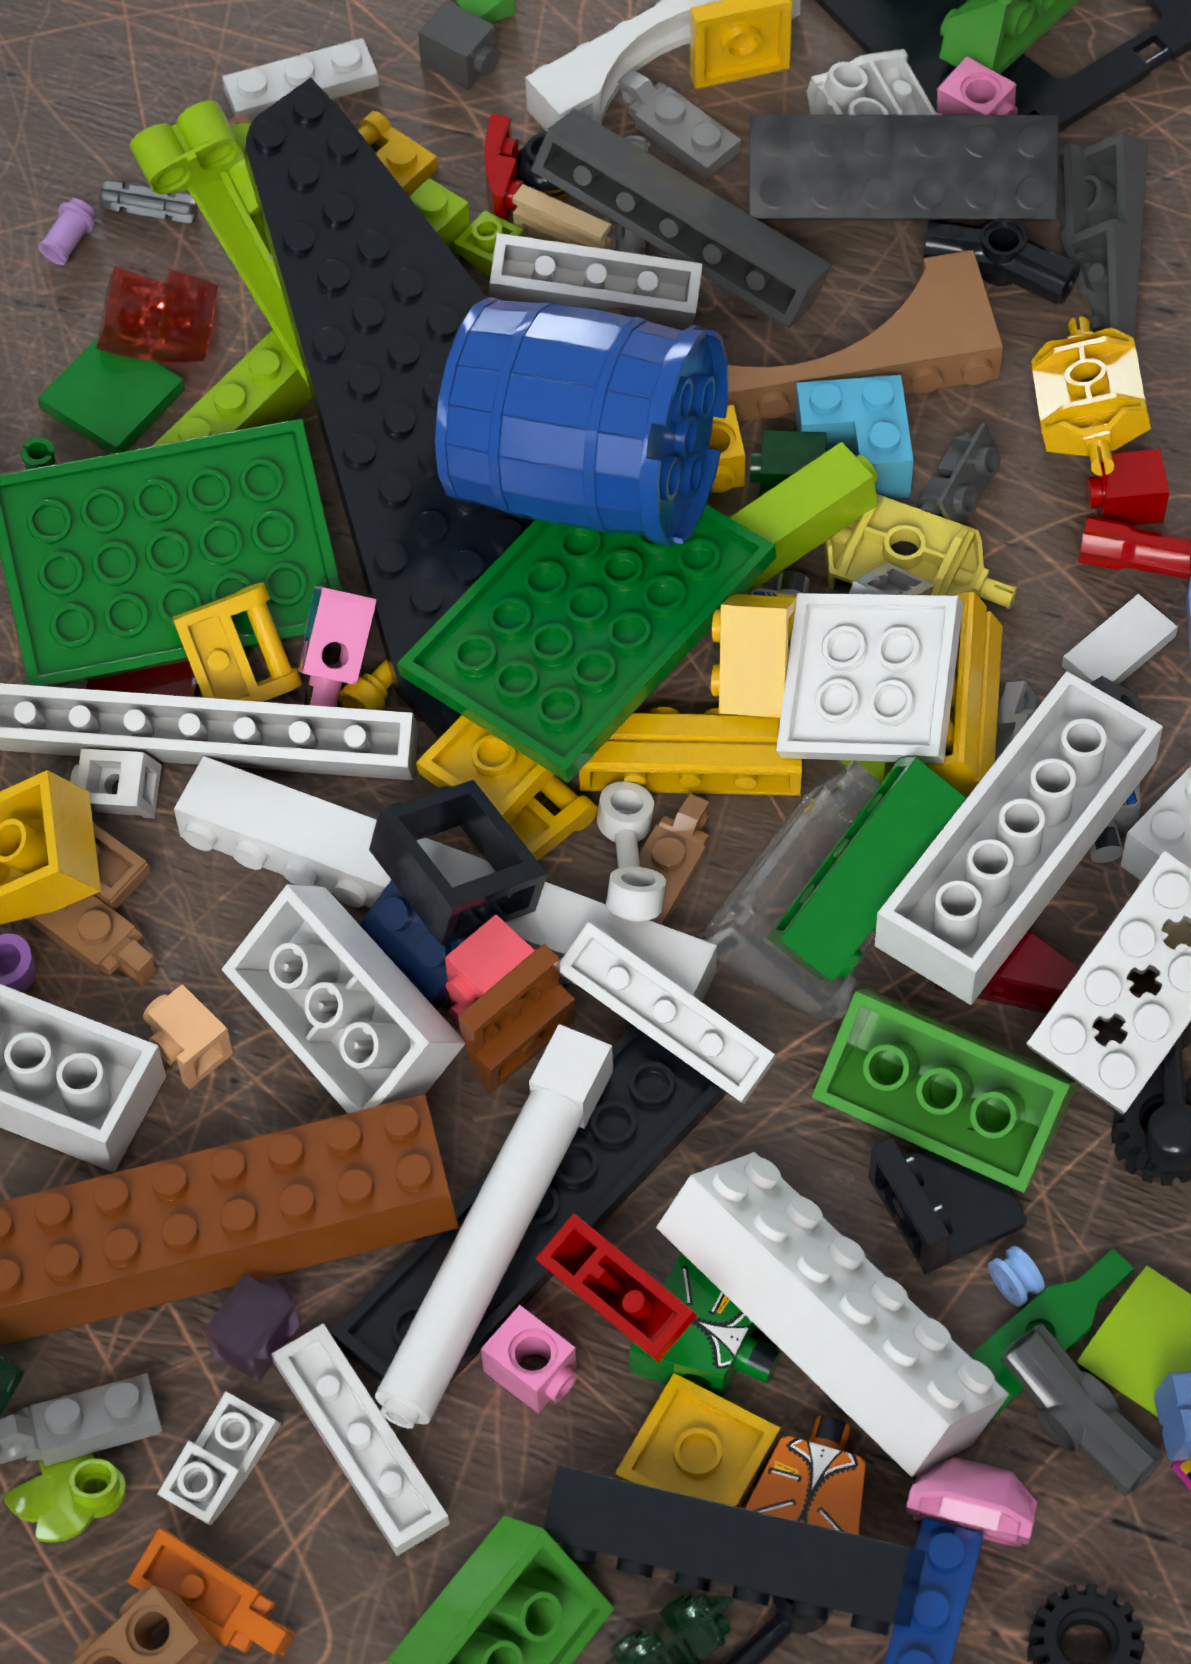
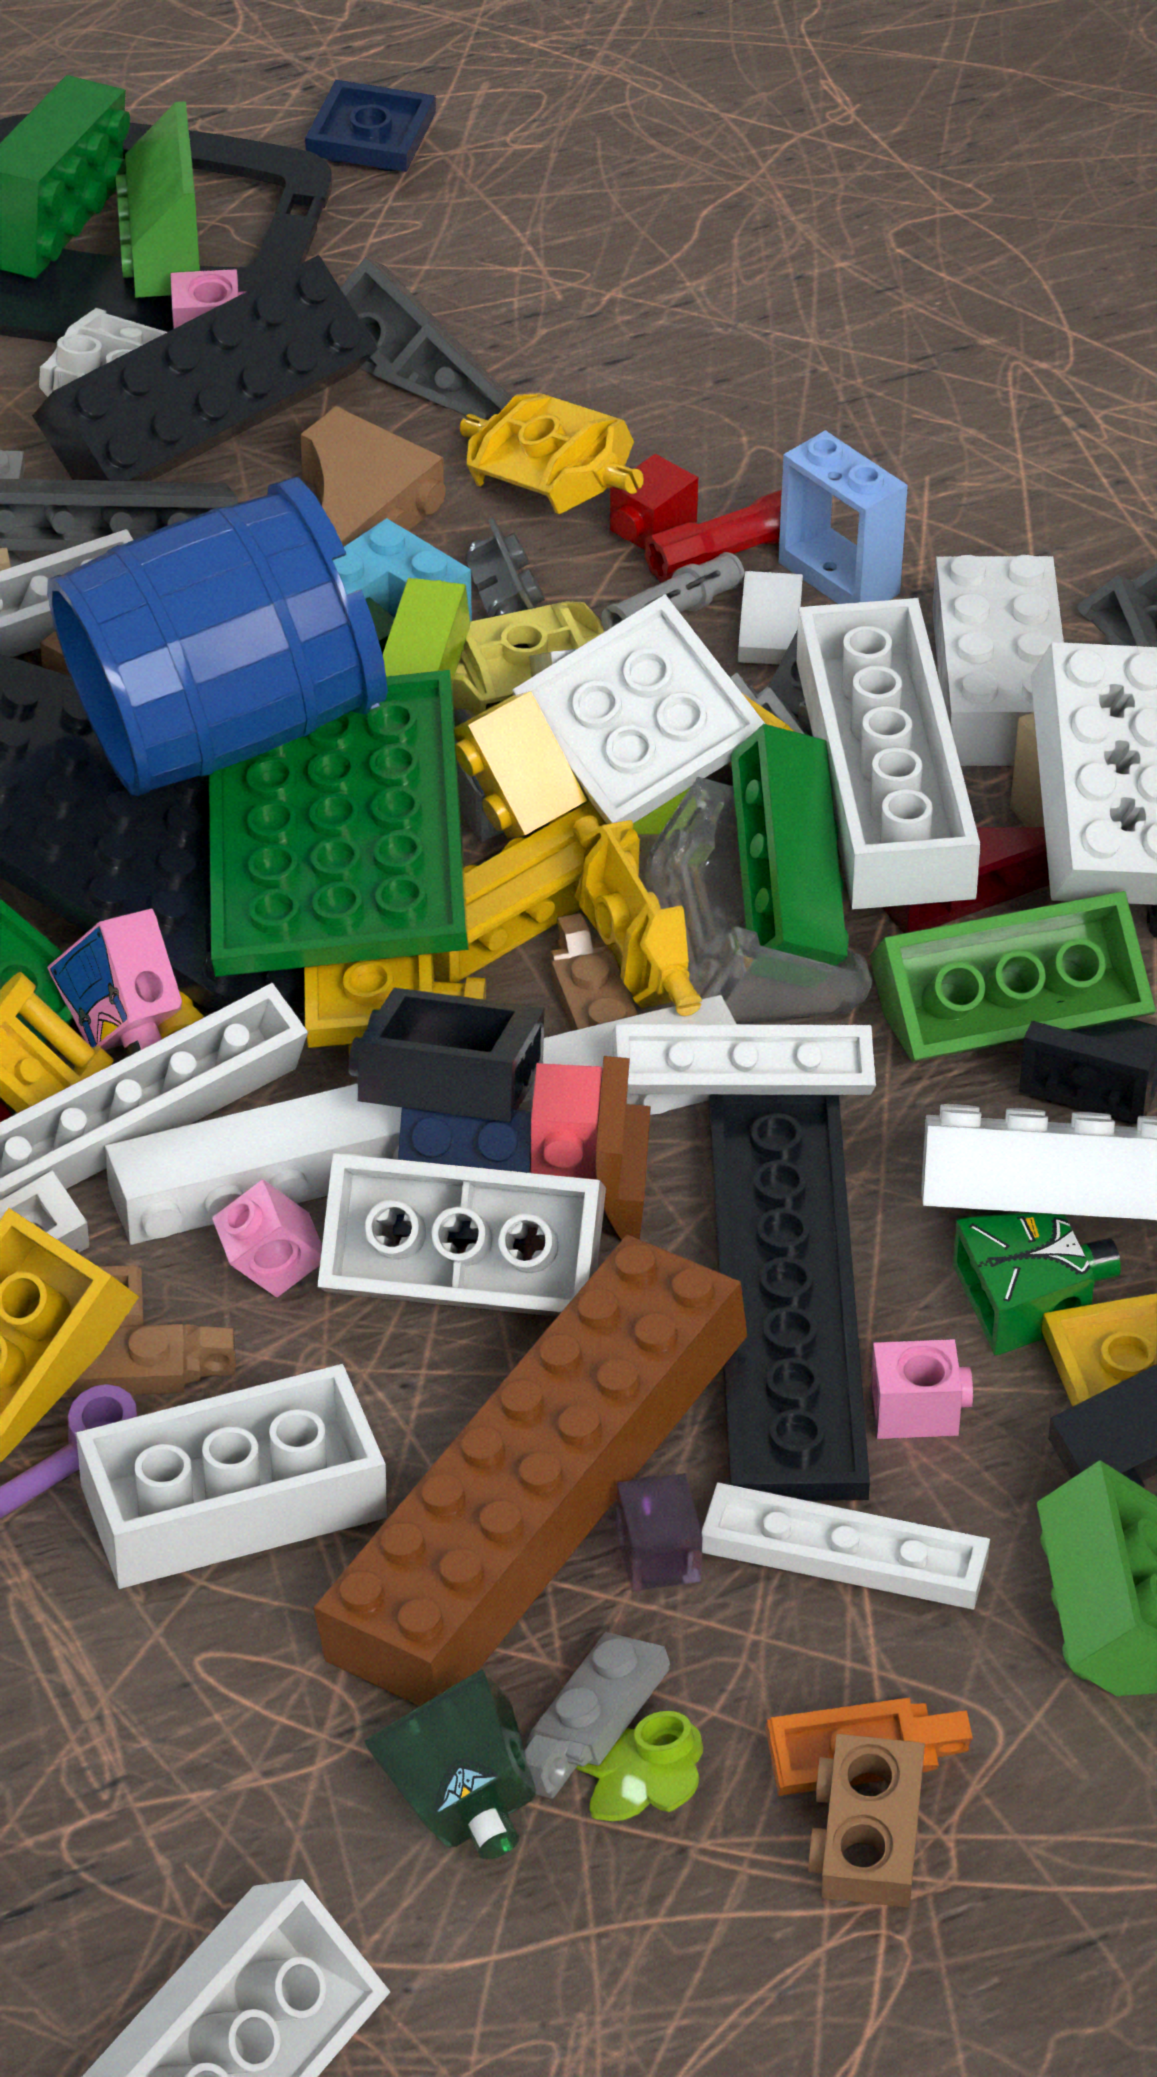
camera: 45 degrees left, 15 degrees down
(187, 1035) = (331, 1343): light nougat brick -> none
(220, 1459) = (741, 1648): white slope -> none
(231, 901) = (269, 1238): none -> bright pink brick
(559, 1101) = (727, 1180): white brick -> none
(616, 1287) = (944, 1271): red slope -> none
(626, 818) = (614, 994): white piece -> none
(728, 796) = (643, 937): none -> yellow plate
(1006, 256) = (376, 400): black piece -> none
(1114, 582) = (712, 579): none -> light grey pin

